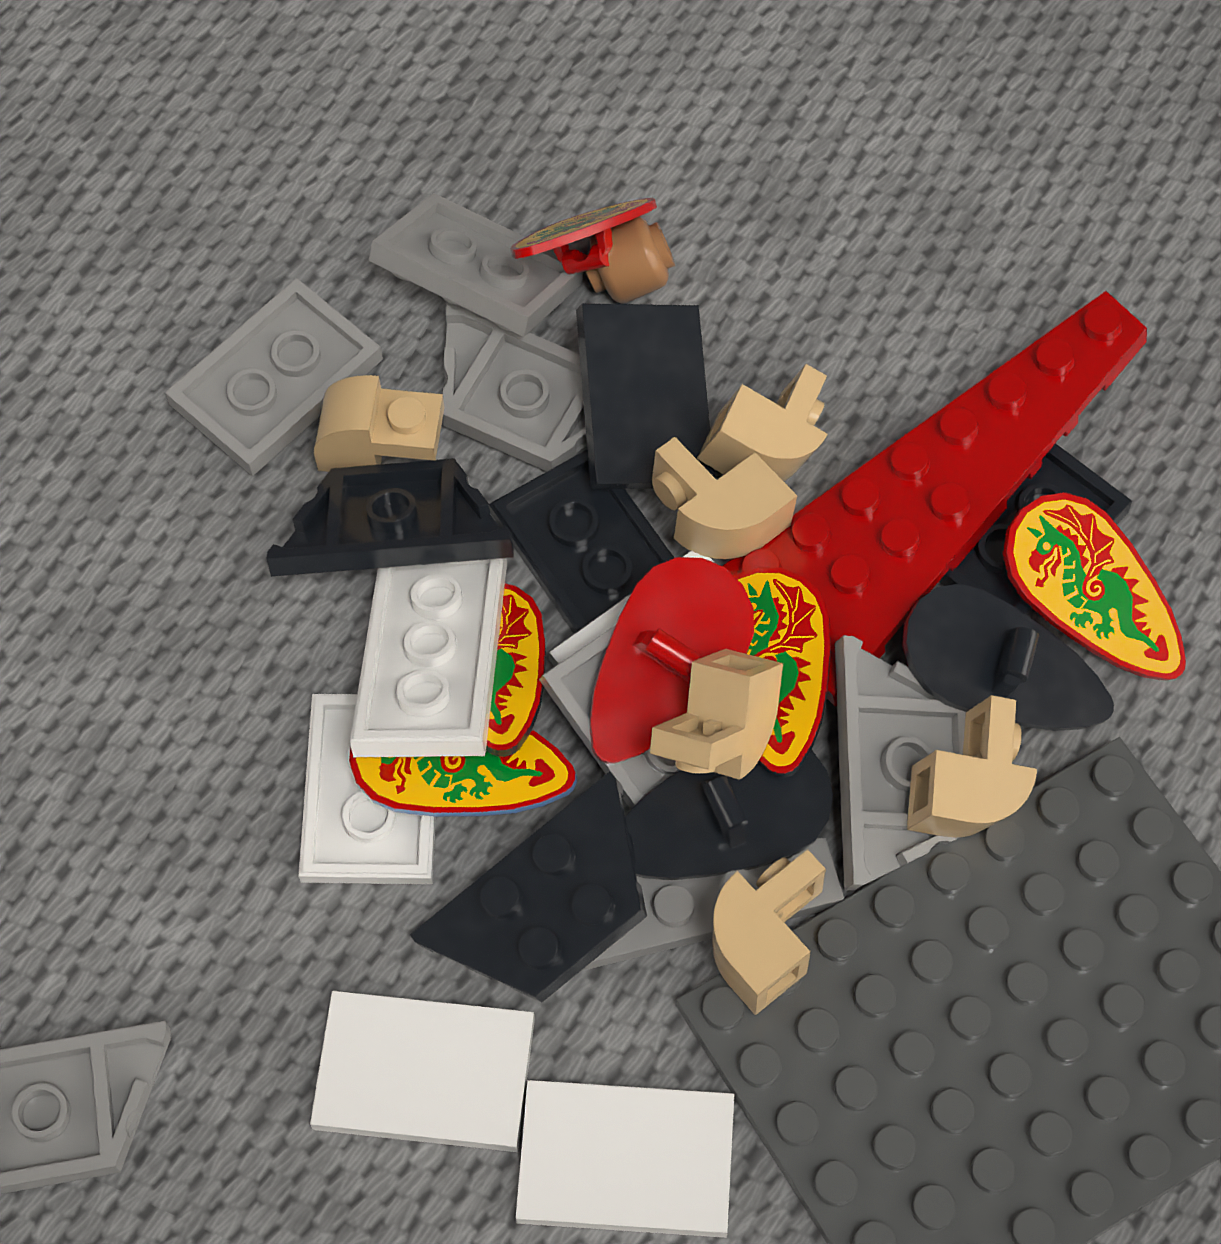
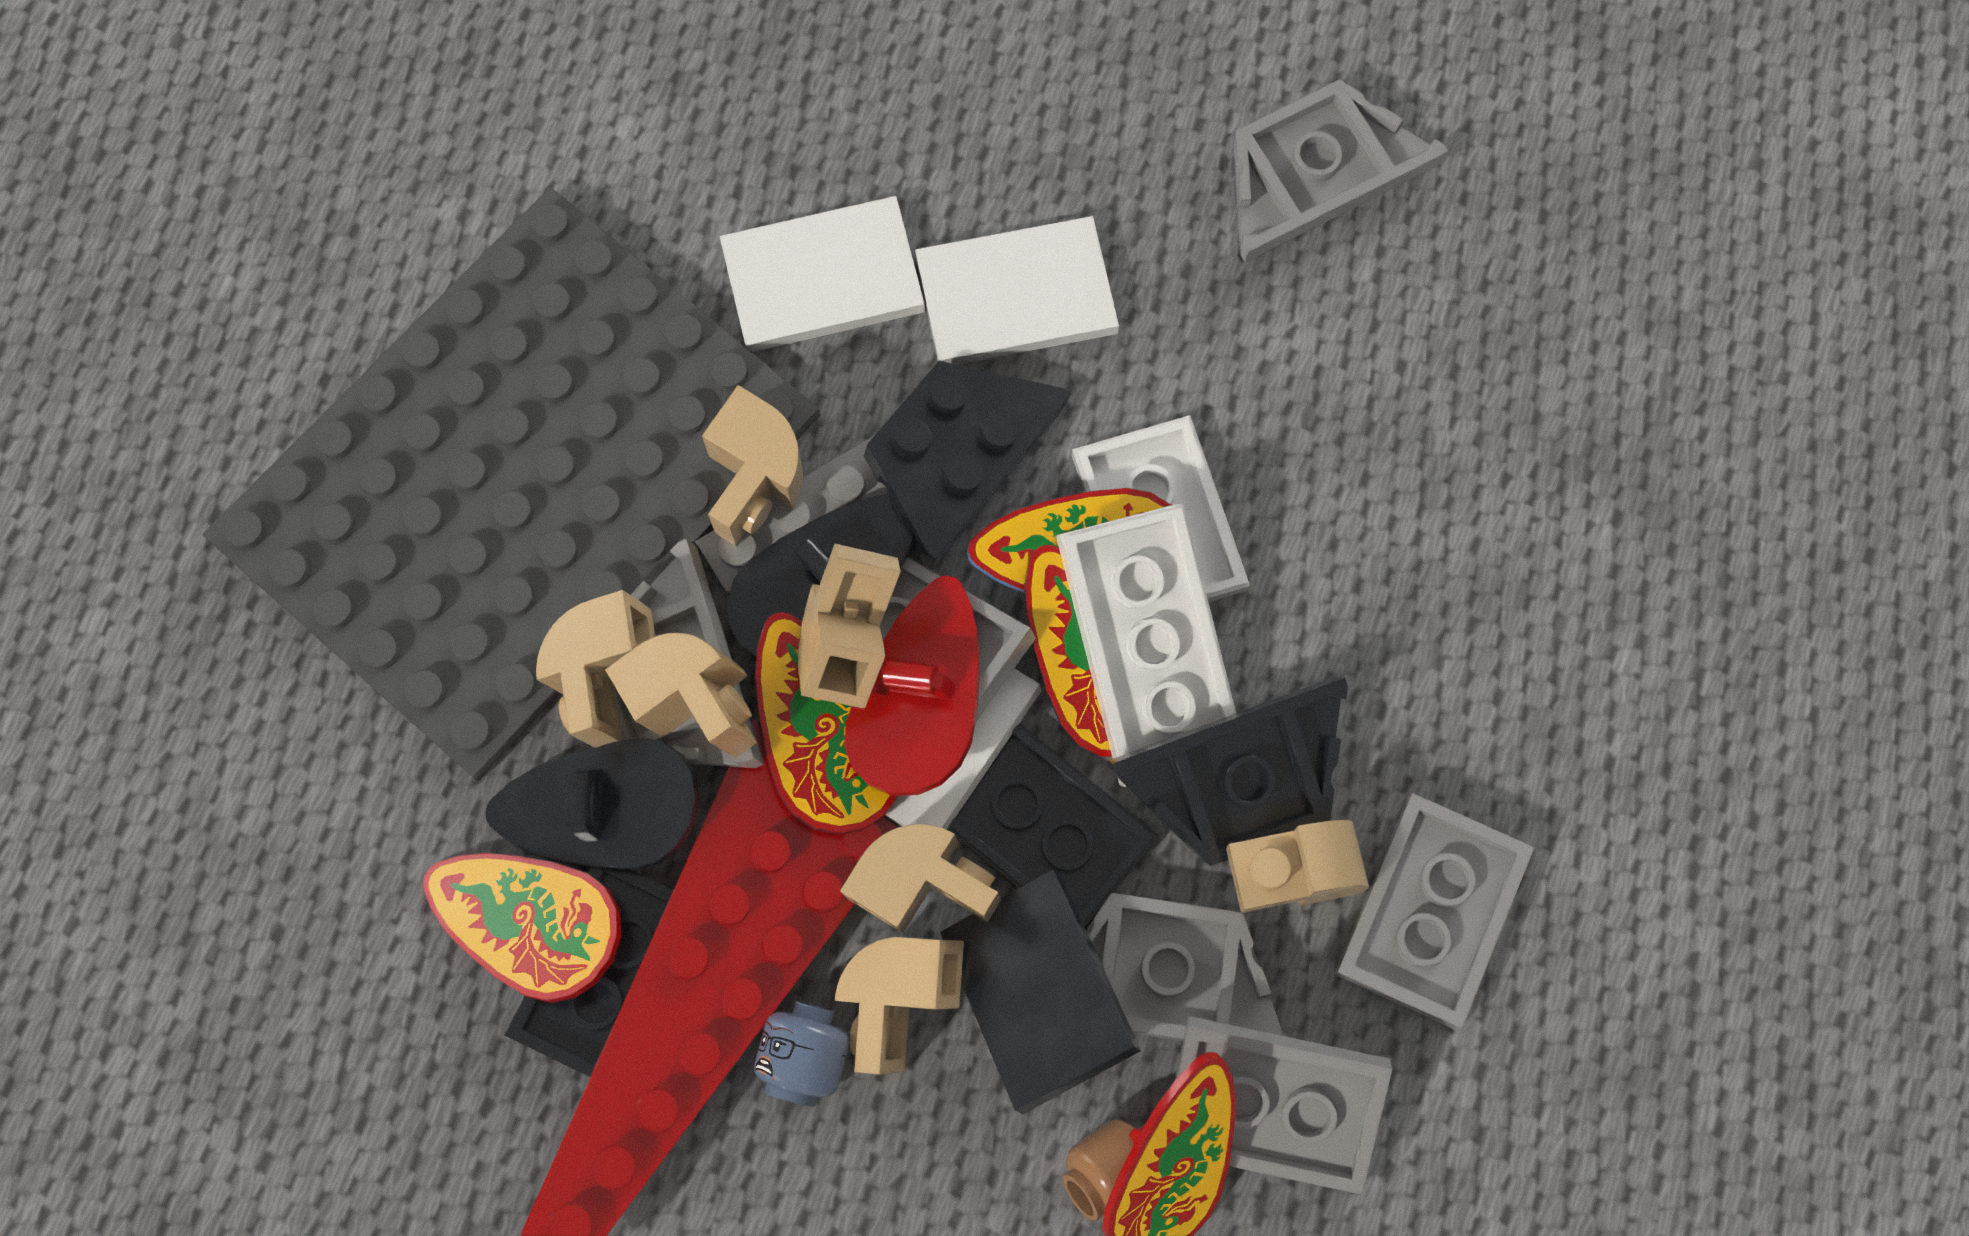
camera: 160 degrees right, 10 degrees up
(868, 410) = (801, 1054): none -> sand blue head
(881, 719) = (681, 678): none -> tan brick

